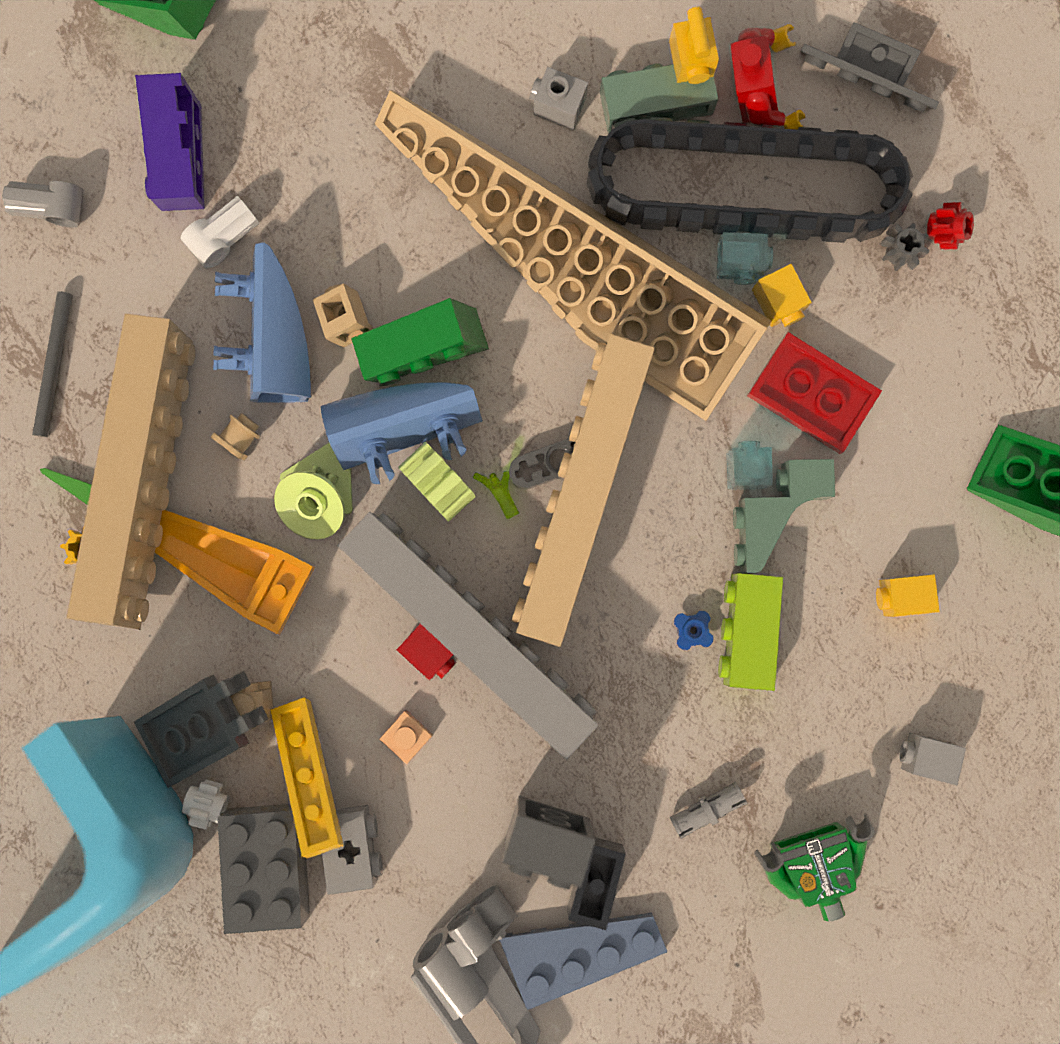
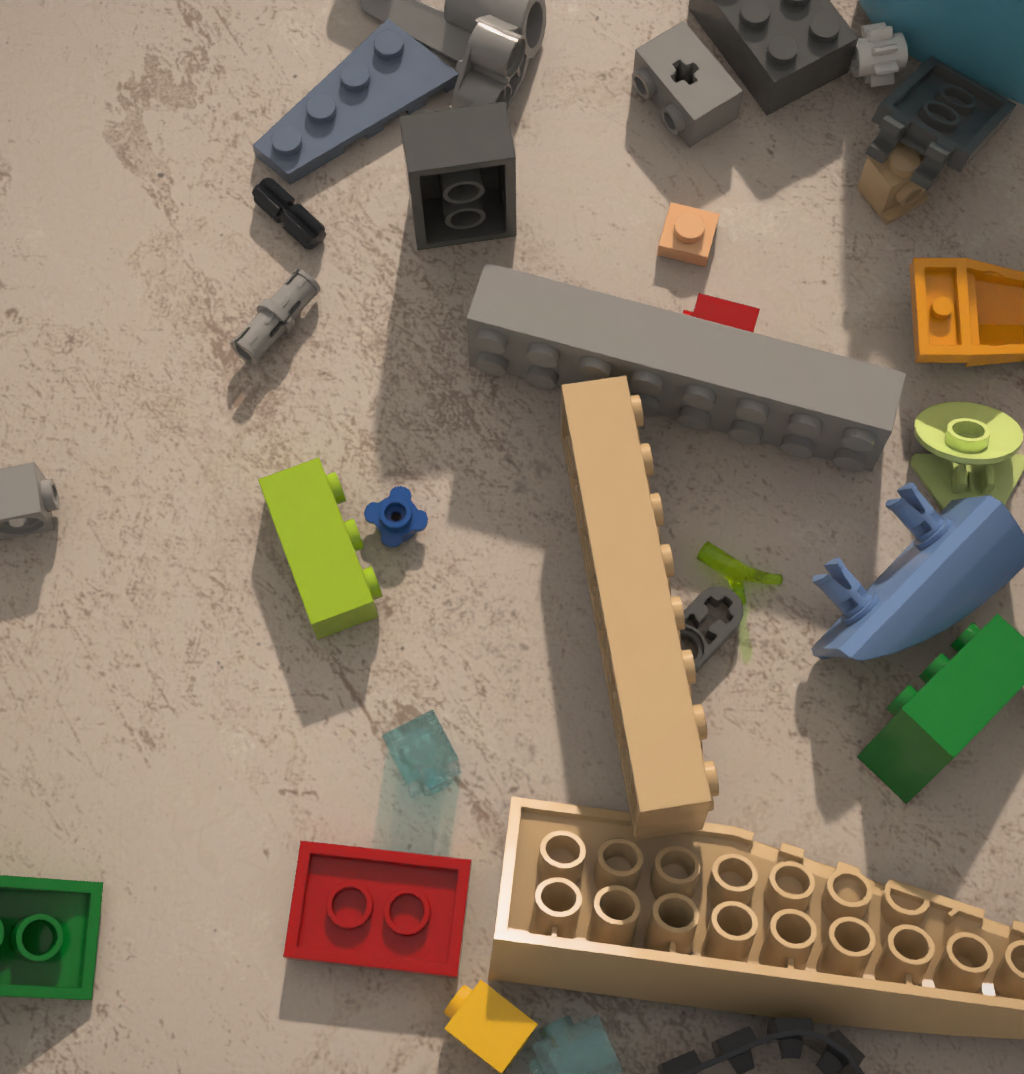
camera: 155 degrees right, 15 degrees down
(306, 778) = (782, 126): yellow plate -> none
(437, 481) = (825, 527): yellowish green gear -> none
(595, 898) = (377, 172): black brick -> none
(666, 892) = (296, 218): none -> black piece
(764, 519) = (369, 703): sand green arch -> none
(819, 864) = (113, 312): torso -> none
(907, 596) = (129, 690): yellow brick -> none

